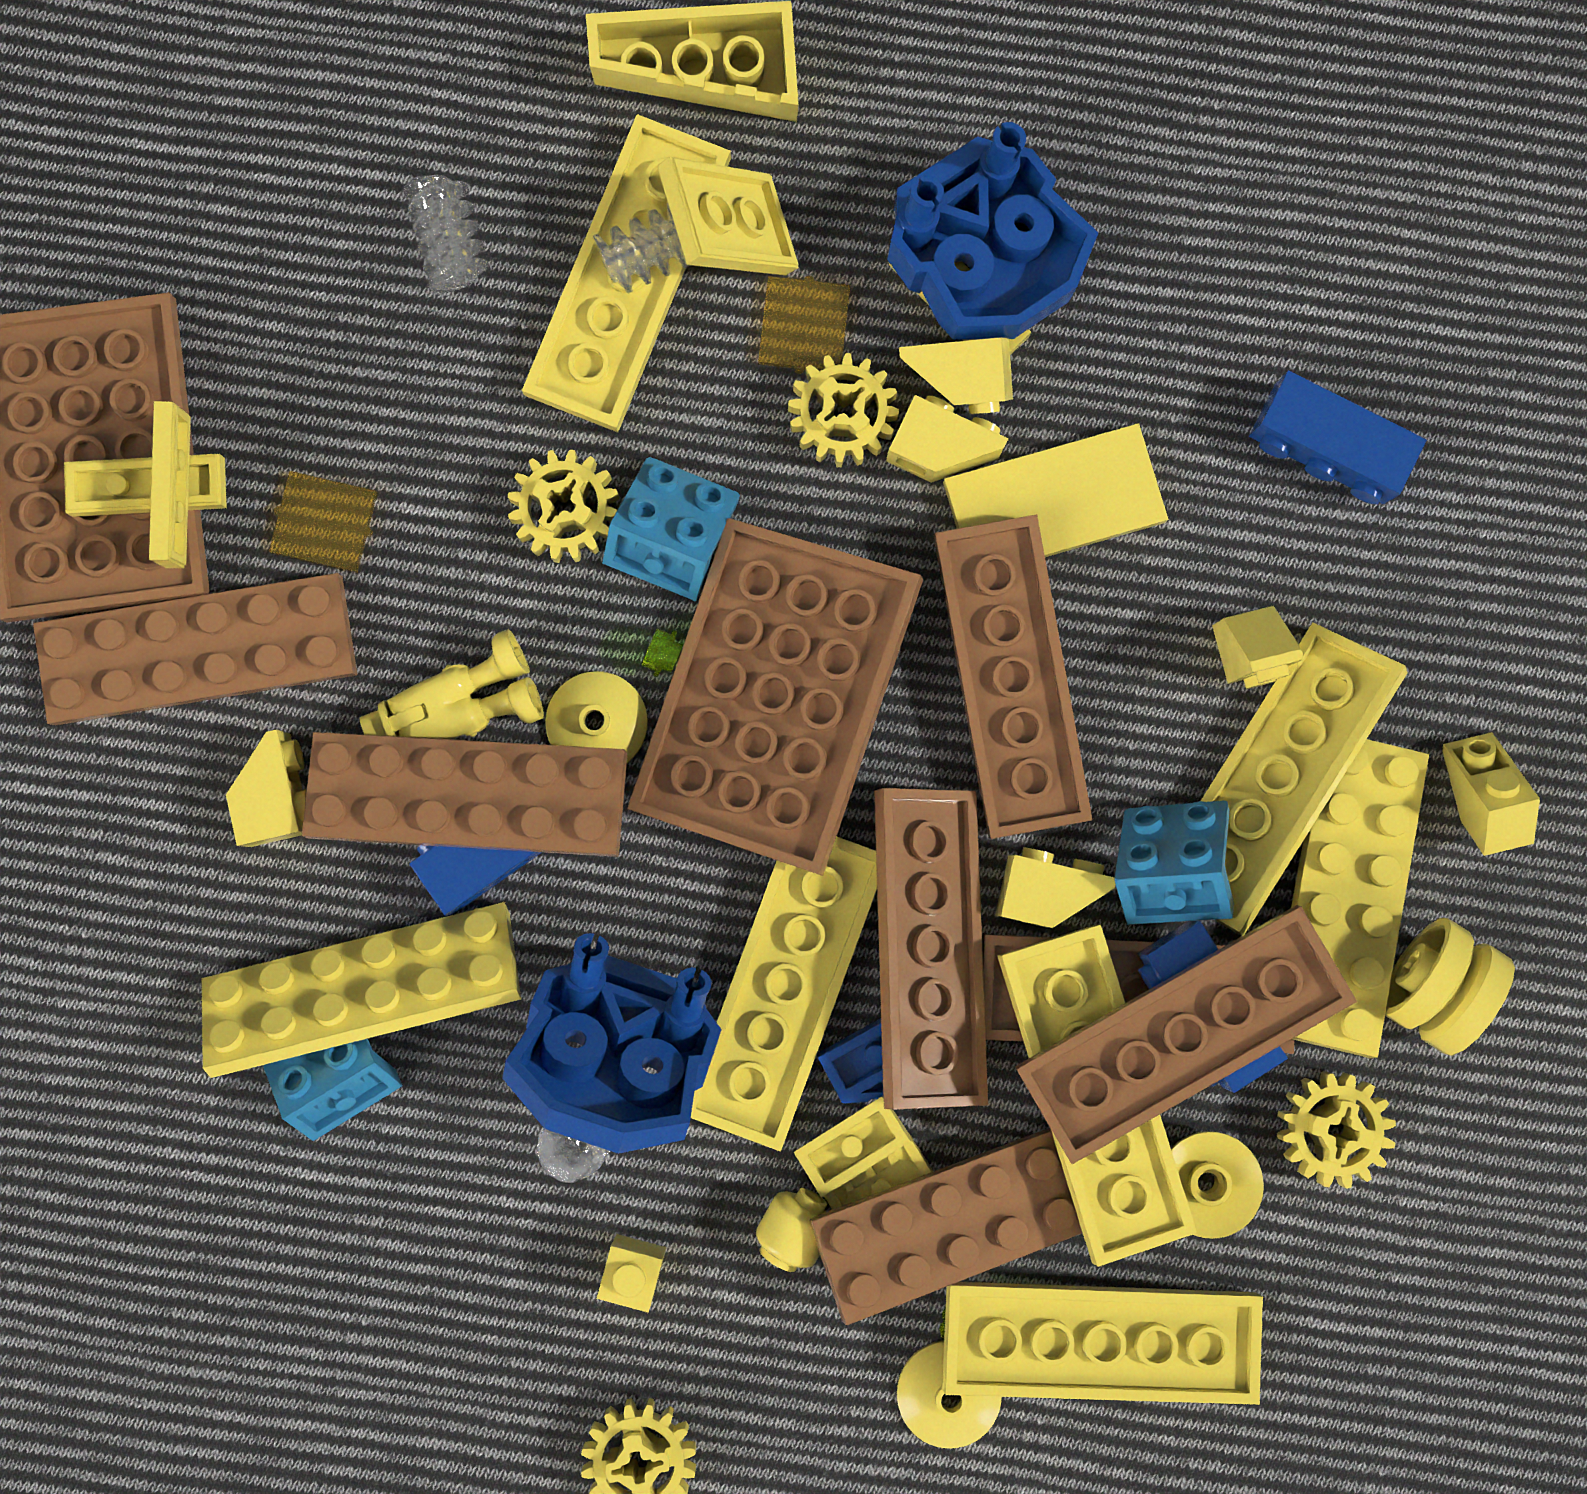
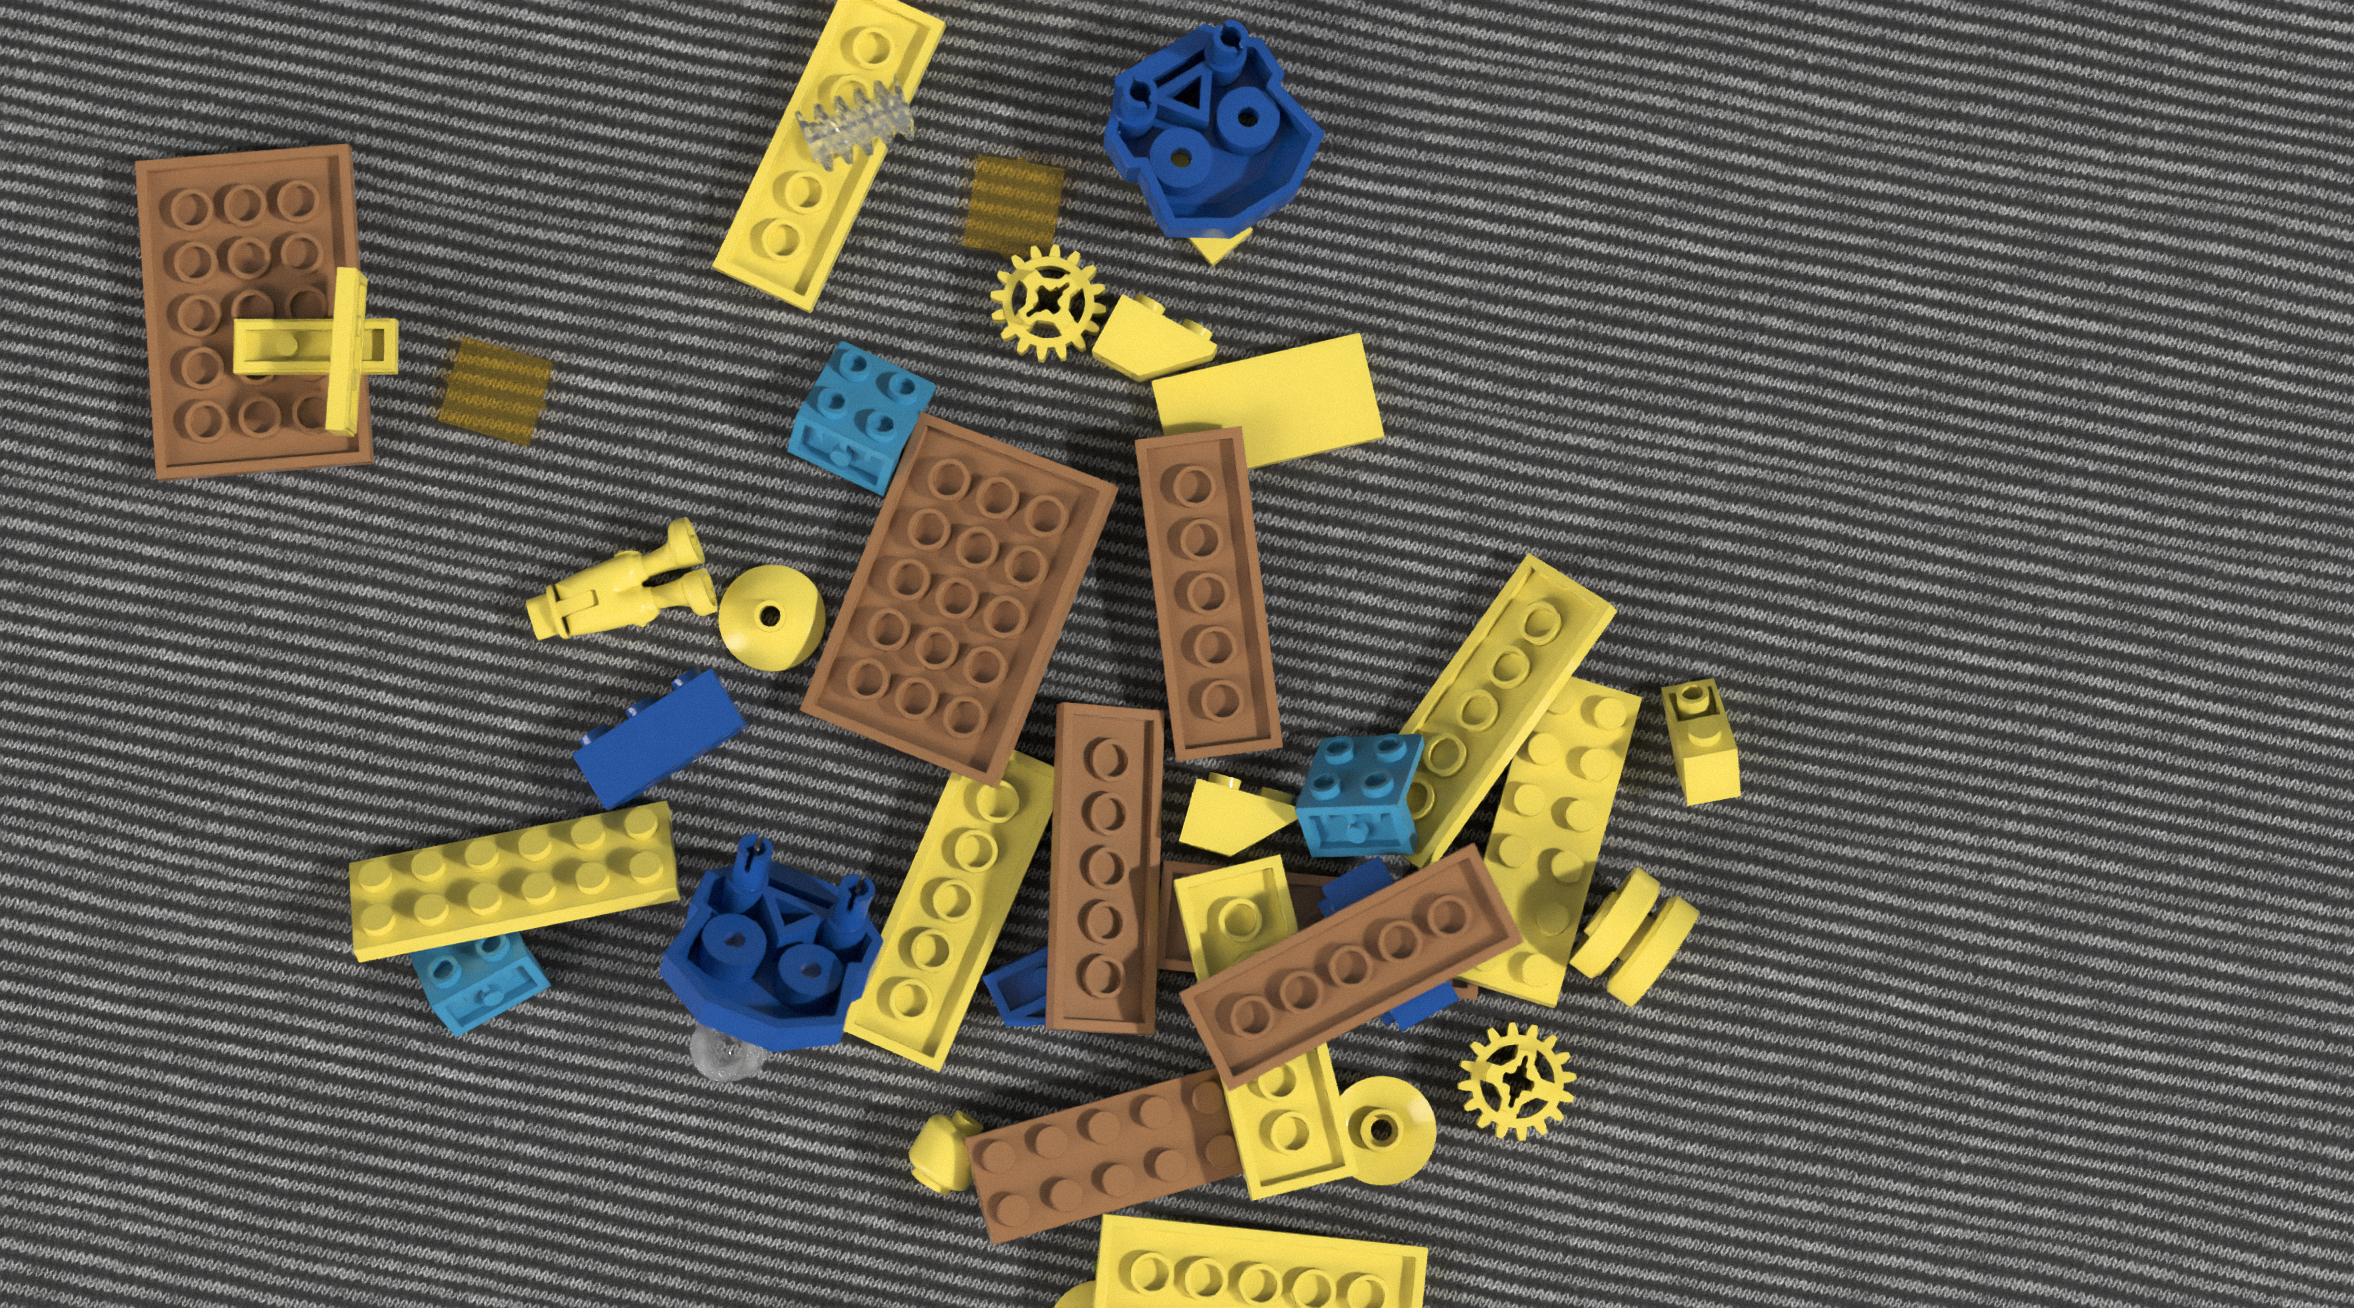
camera: 10 degrees right, 0 degrees up
(194, 649) = (356, 519): medium nougat plate -> none
(268, 795) = (427, 675): light yellow slope -> none
(443, 233) = (640, 94): clear piece -> none
(465, 794) = (633, 685): medium nougat plate -> none
(552, 525) = (764, 369): light yellow gear -> none
(631, 1273) = (779, 1187): light yellow brick -> none
(662, 652) = (845, 548): clear neon green plate -> none
(727, 217) = (937, 99): light yellow tile -> none
(862, 1156) = (1023, 1080): light yellow slope -> none
(966, 371) = (1178, 270): light yellow slope -> none
(1256, 647) = (1463, 576): light yellow slope -> none
(1337, 439) = (1565, 361): blue brick -> none

